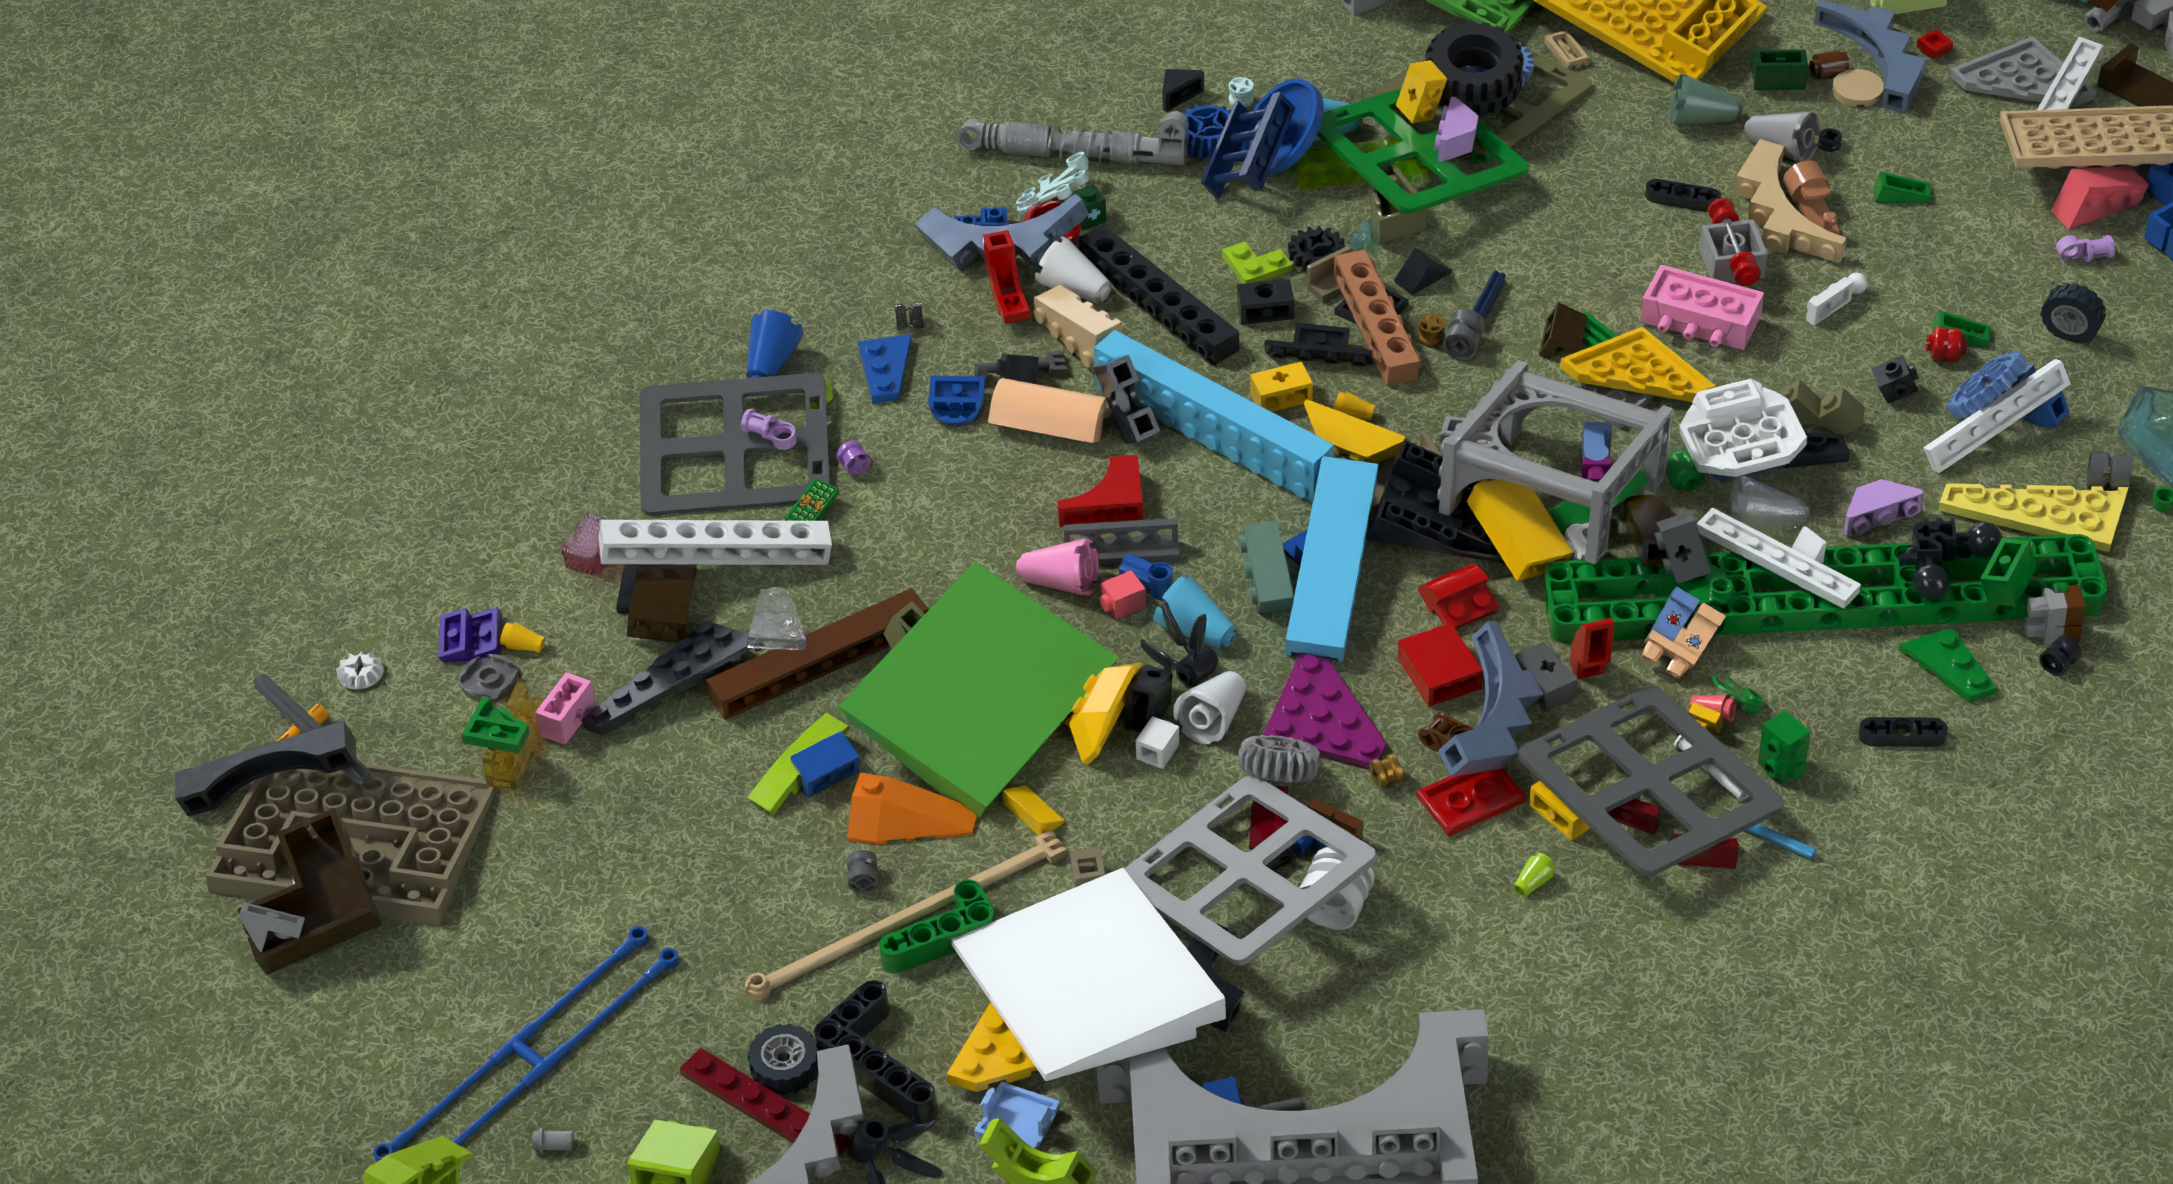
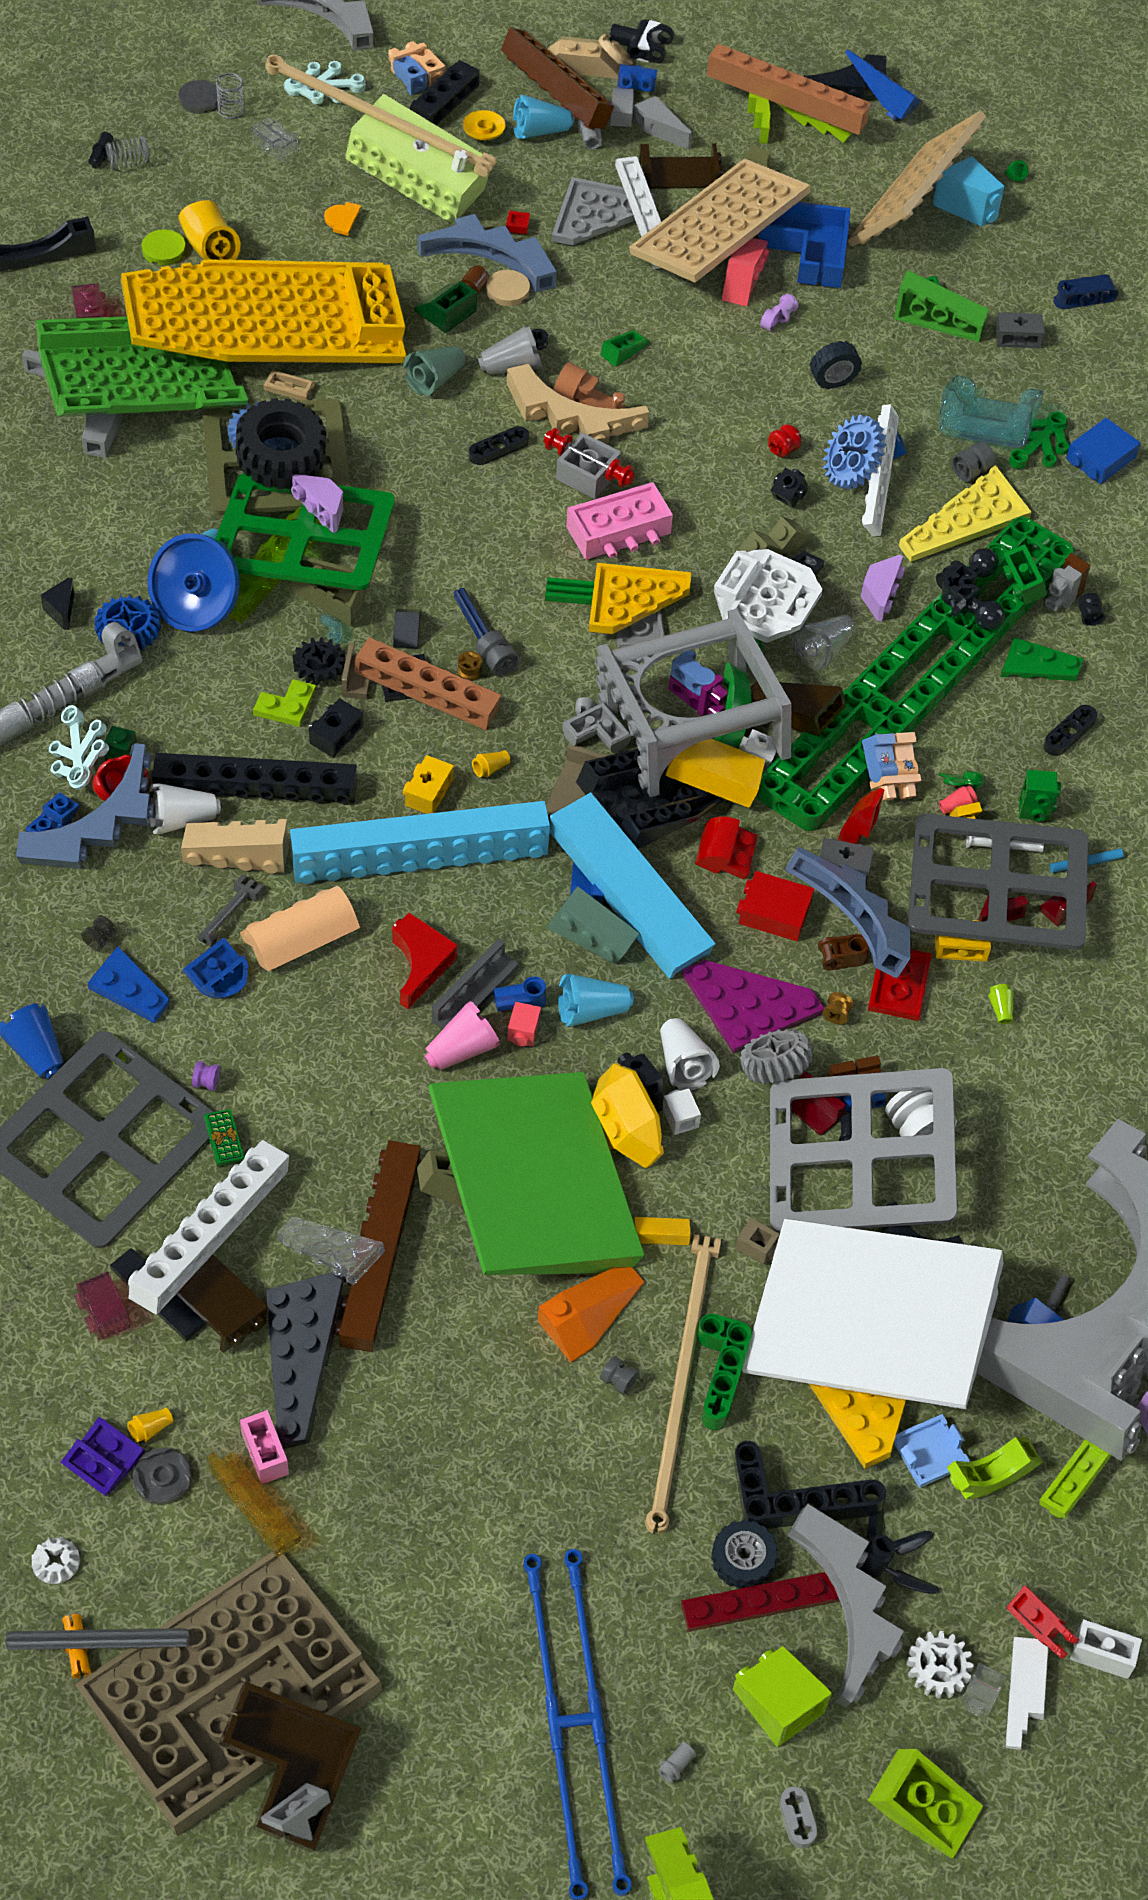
camera: 55 degrees left, 10 degrees up
(211, 783) = (73, 1757): black arch -> none
(495, 728) = (256, 1509): green wing -> none
(769, 428) = (122, 1104): lavender connector -> none
(783, 776) = (475, 1337): lime slope -> none
(826, 763) = (497, 1320): blue panel -> none
(1004, 277) = (137, 851): red arch -> none
(1018, 367) = (239, 911): black brick -> none
(1131, 416) = (370, 888): black arch -> none
(1197, 663) = (631, 1028): black plant -> none
(1241, 91) = (111, 569): light aqua wheel -> none
(1263, 149) = (211, 613): dark blue fence -> none
(1321, 343) = (410, 730): black bracket -> none
(1352, 435) = (534, 784): yellow wedge -> none
(1421, 91) = (270, 486): yellow brick -> none
(1563, 329) = (552, 604): dark brown panel -> none
(1686, 563) = (843, 704): dark grey brick -> none
(1711, 587) = (872, 718): green plate -> none
(1778, 558) = (887, 667): white plate -> none
(1810, 545) = (897, 647): white slope -> none
(1835, 297) = (682, 435): white plate -> none
(1950, 321) = (762, 428): green slope -> none

